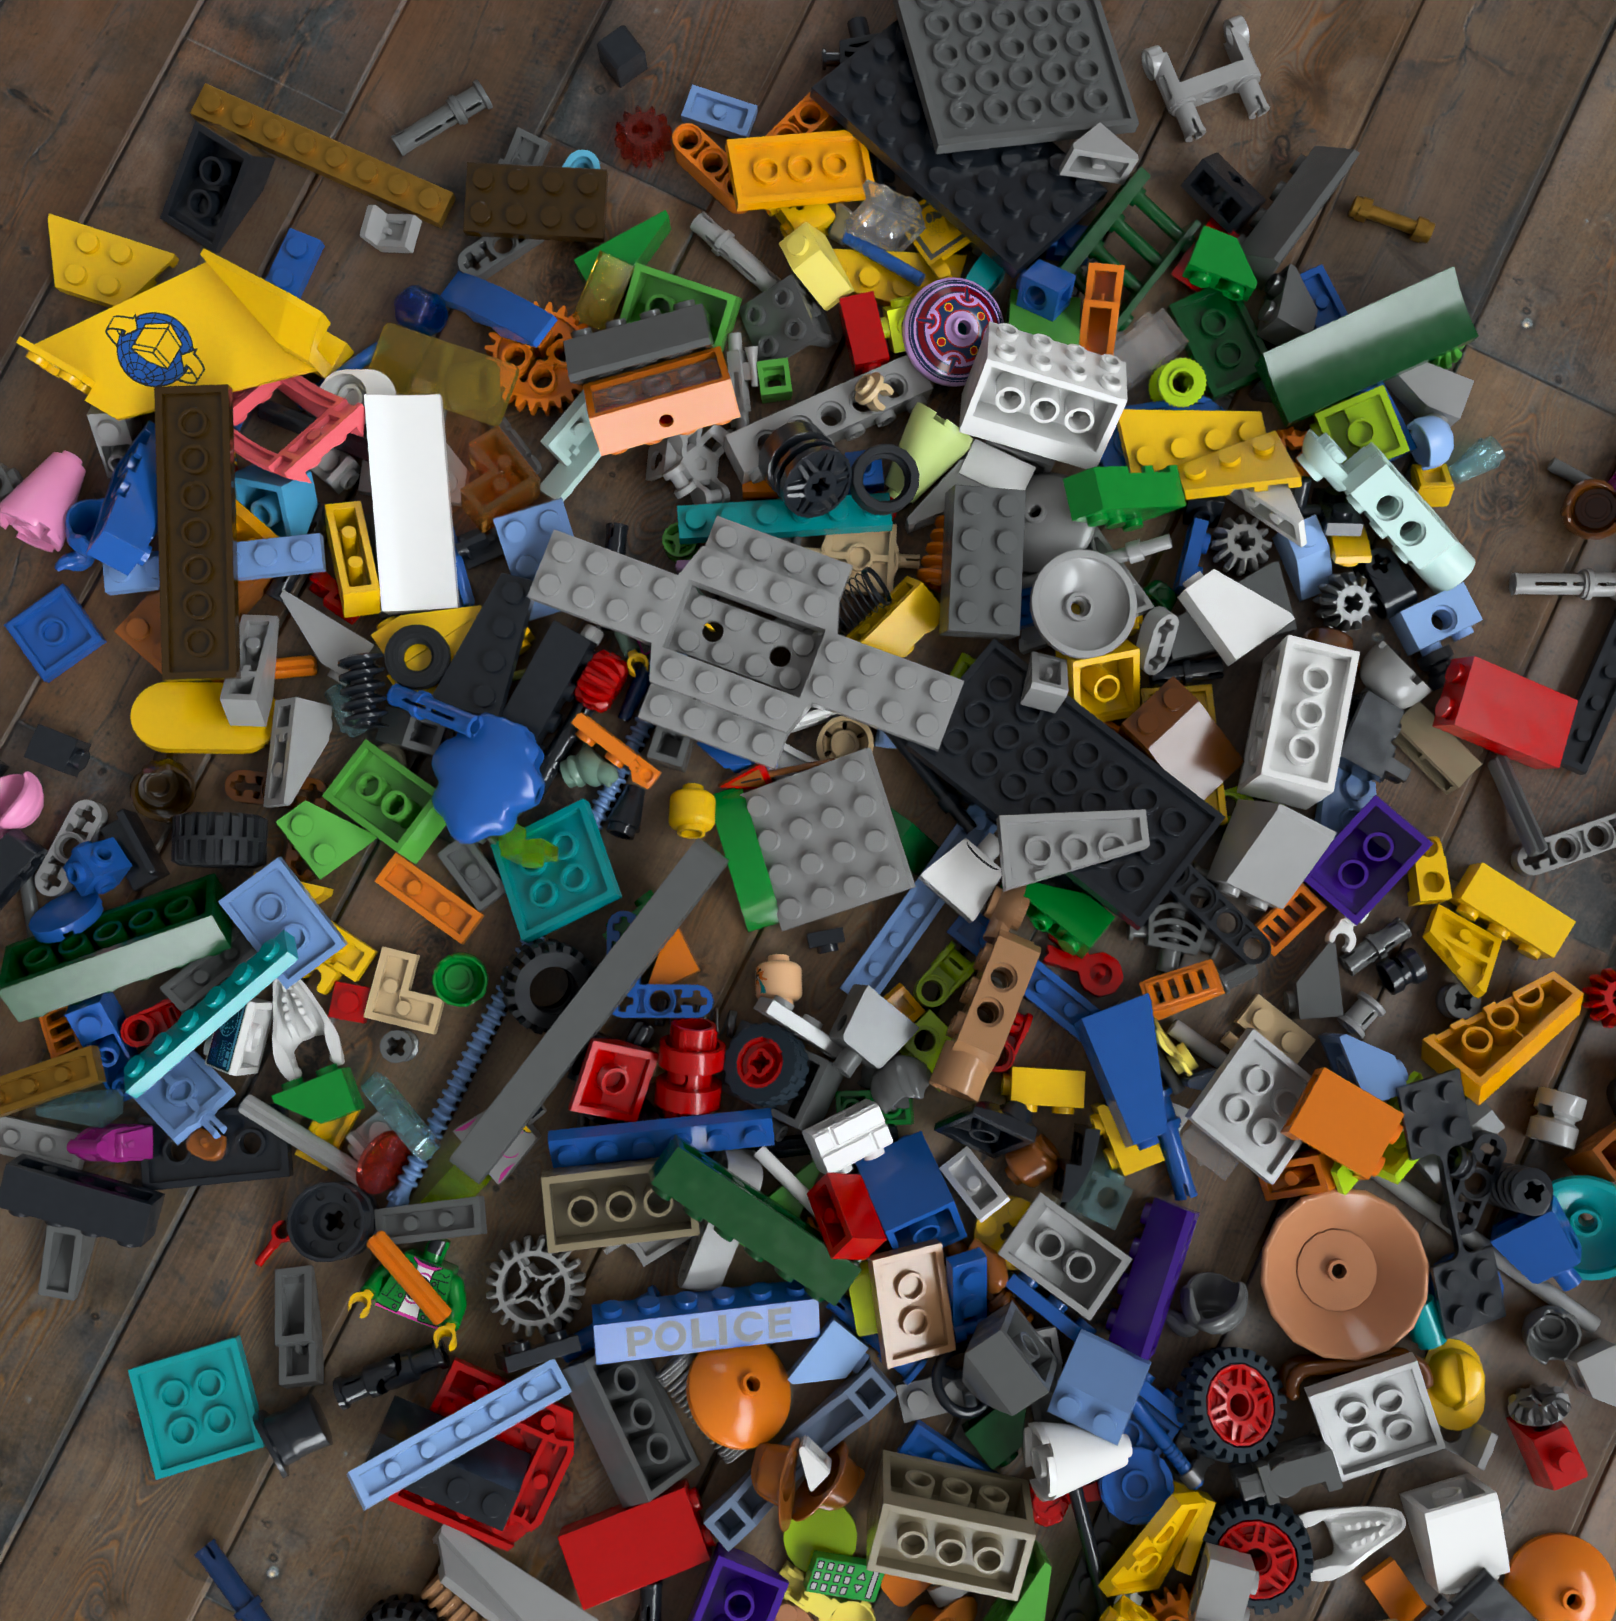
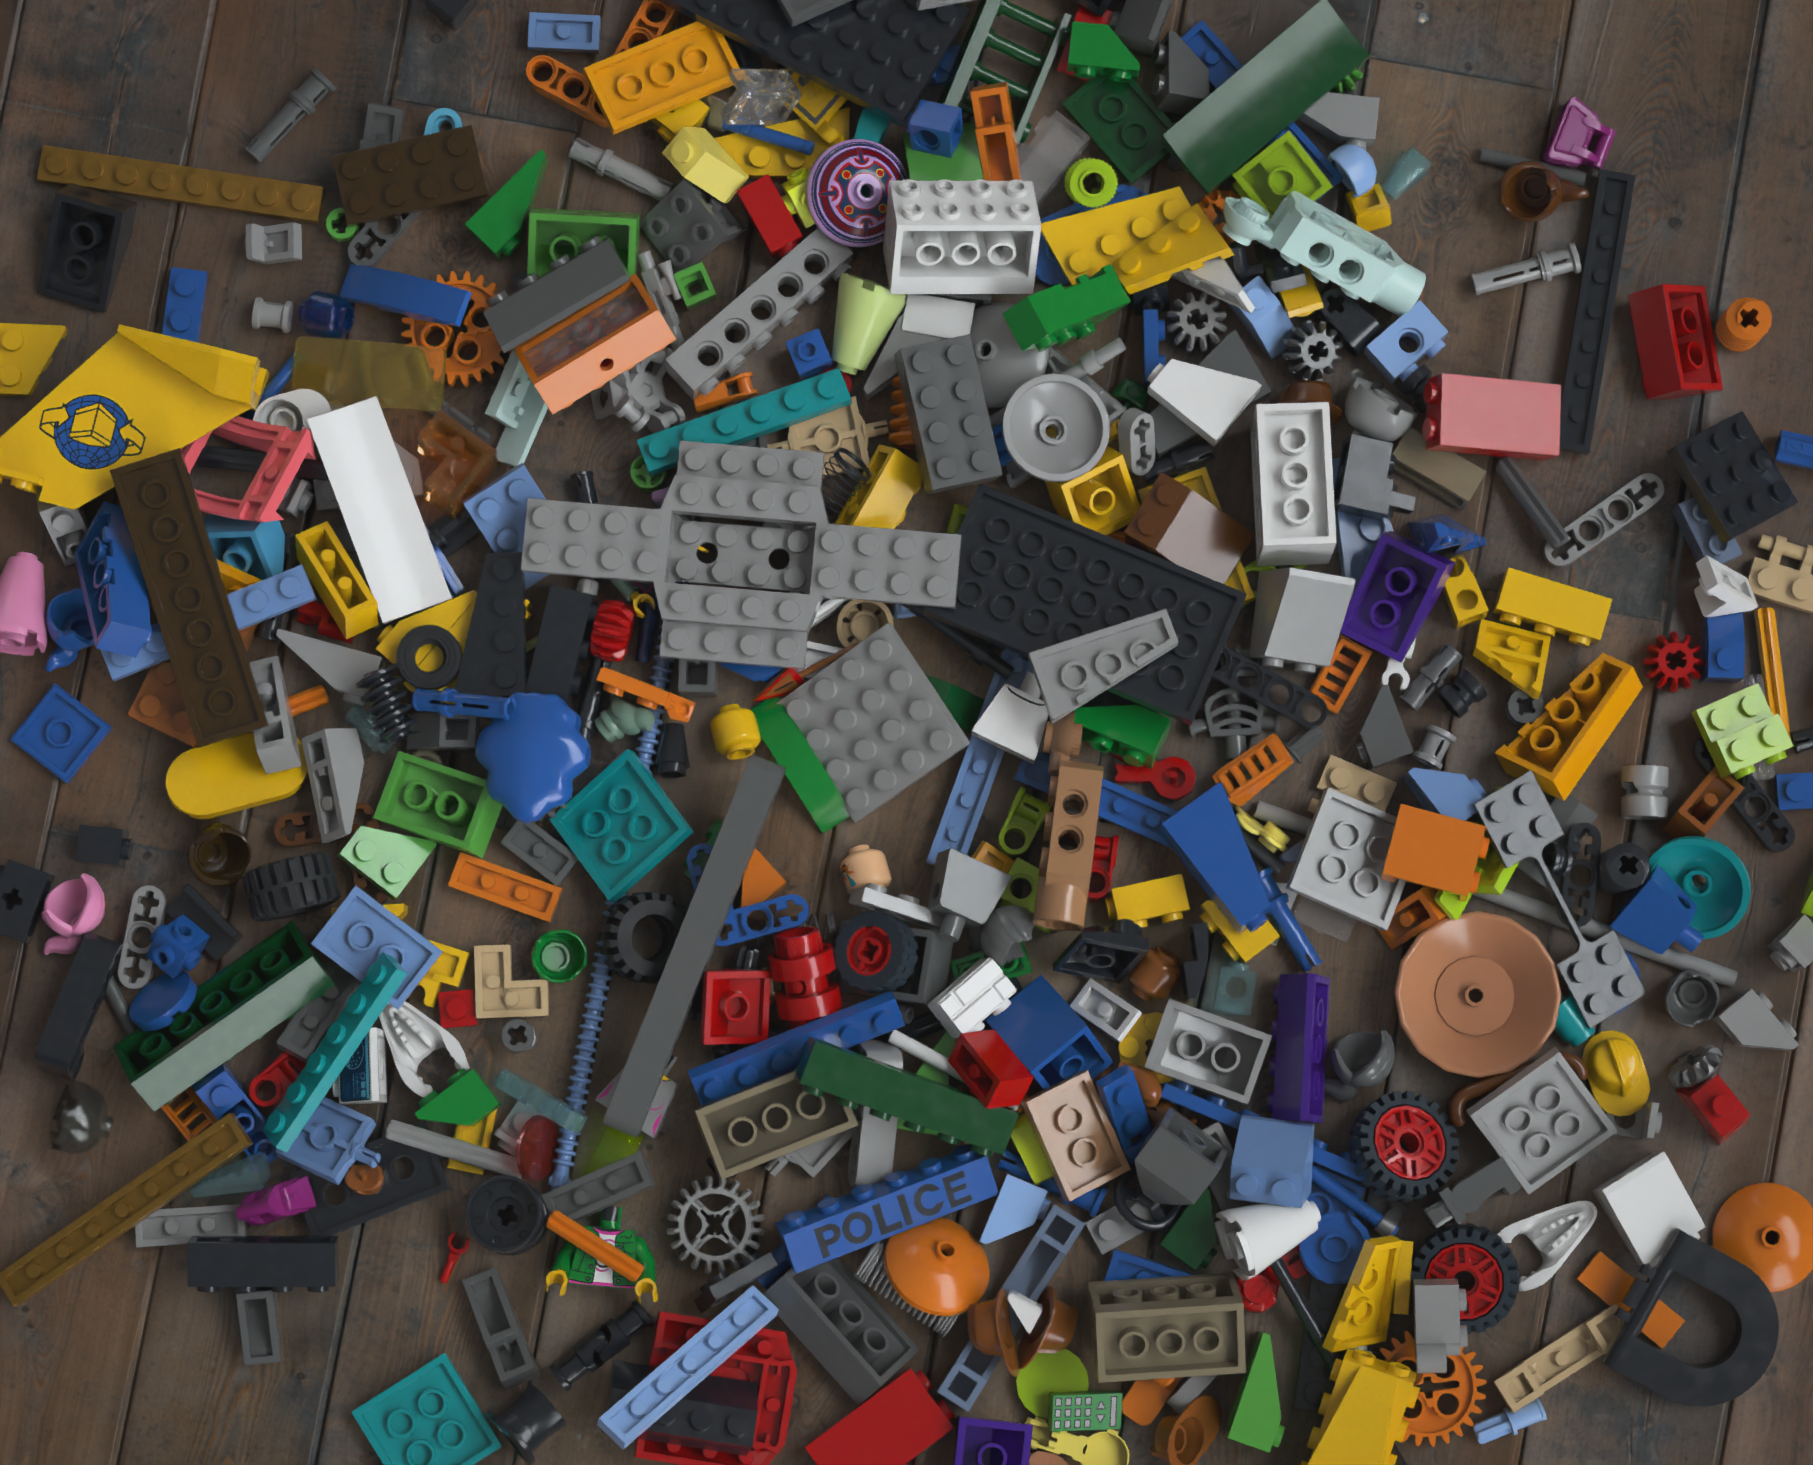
camera: 10 degrees left, 0 degrees up
(370, 297) = (272, 315): none -> light grey bush
(454, 225) = (334, 218): none -> bright green bush
(529, 852) = (589, 815): clear neon green bracket -> none
(603, 291) = (504, 248): clear yellow plate -> none
(641, 124) = (486, 87): clear red gear -> none
(805, 469) = (752, 372): black wheel -> none
(826, 940) = (899, 819): black plate -> none
(868, 389) = (791, 275): tan plate -> none
(910, 472) = (857, 354): black tyre -> none
(1045, 682) = (1039, 513): light grey slope -> none
(1430, 811) = (1443, 532): none -> blue wedge

